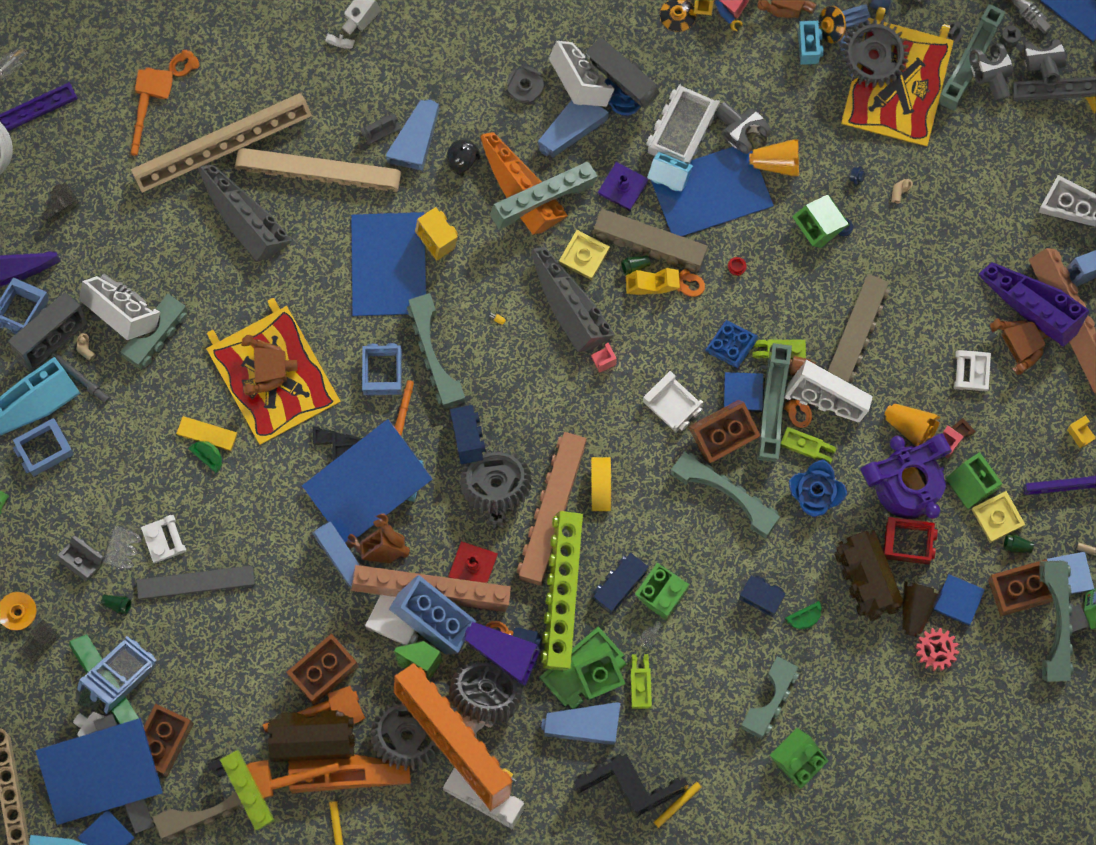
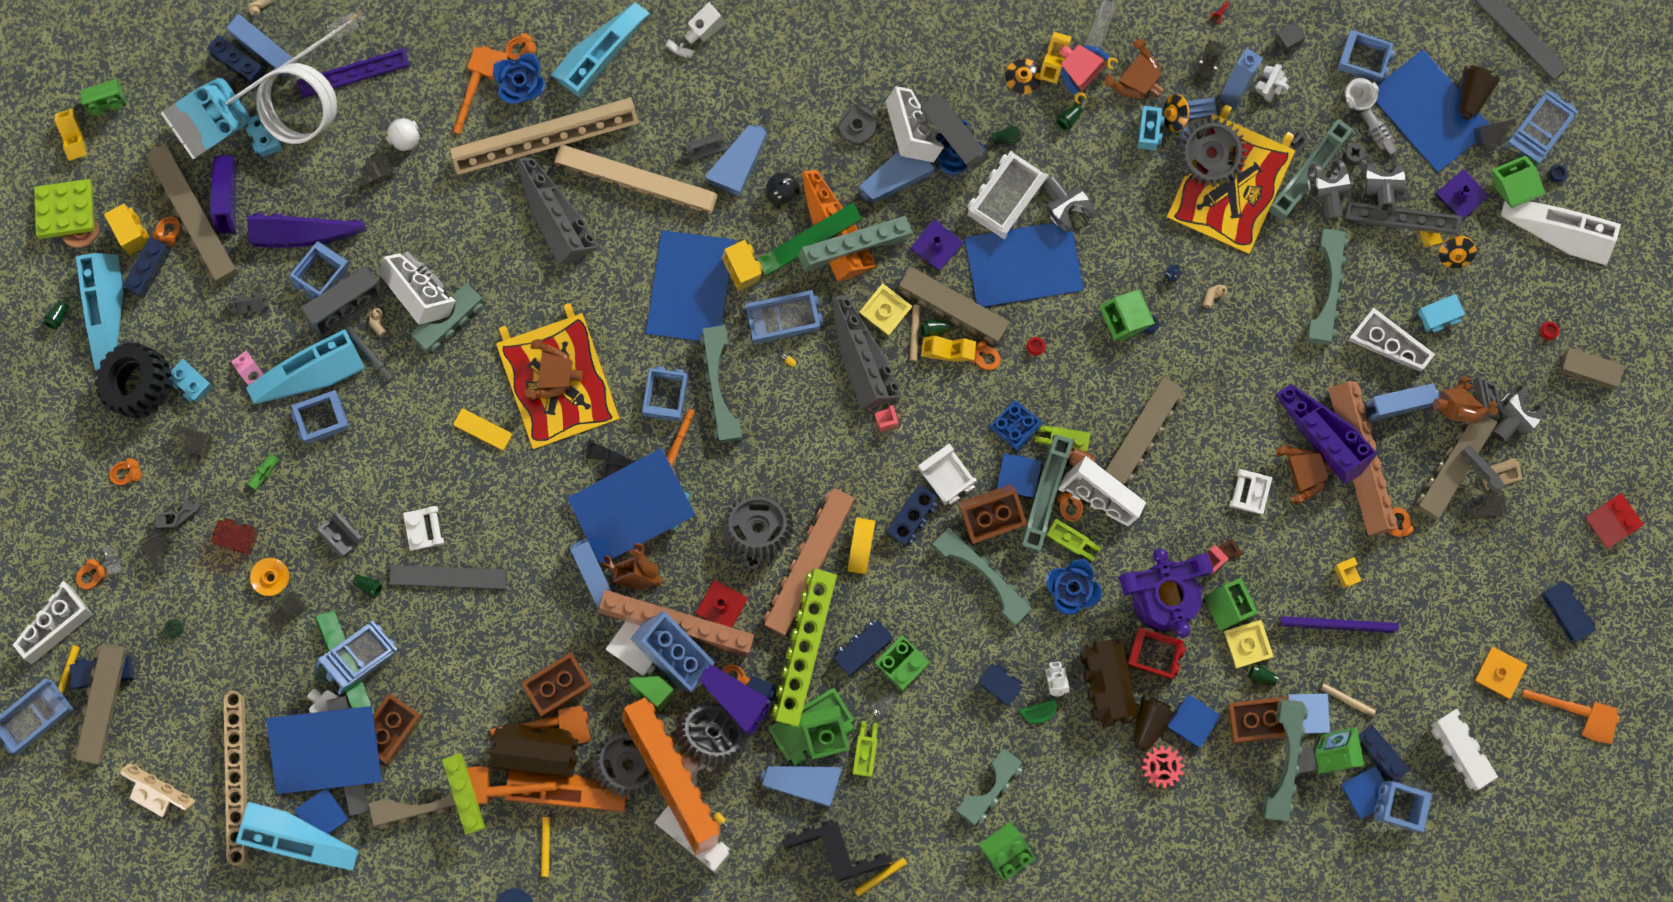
camera: 10 degrees right, 5 degrees up
(81, 163) = (403, 134): none -> white cap
(120, 547) = (379, 529): clear plate -> none
(192, 81) = (526, 68): none -> blue brick
(208, 454) = (480, 450): green tile -> none
(215, 763) = (436, 761): black tile -> none
(260, 54) = (595, 52): none -> medium azure wedge
(467, 434) = (738, 474): dark blue brick -> none
(485, 277) = (784, 316): none -> door
(512, 185) = (819, 232): none -> green tile
(616, 272) = (914, 332): none -> tan bar
(643, 438) = (912, 506): none -> dark blue brick
(669, 172) = (985, 239): medium azure brick -> none
(673, 71) = (1007, 135): none -> dark green cone
(728, 47) = (1069, 117): none -> dark green cone
(777, 158) = (1096, 243): light orange cone -> none
(817, 581) = (1057, 679): none -> white hips
(912, 423) = (1181, 536): light orange cone -> none
(1006, 126) = (1332, 245): none -> sand green arch

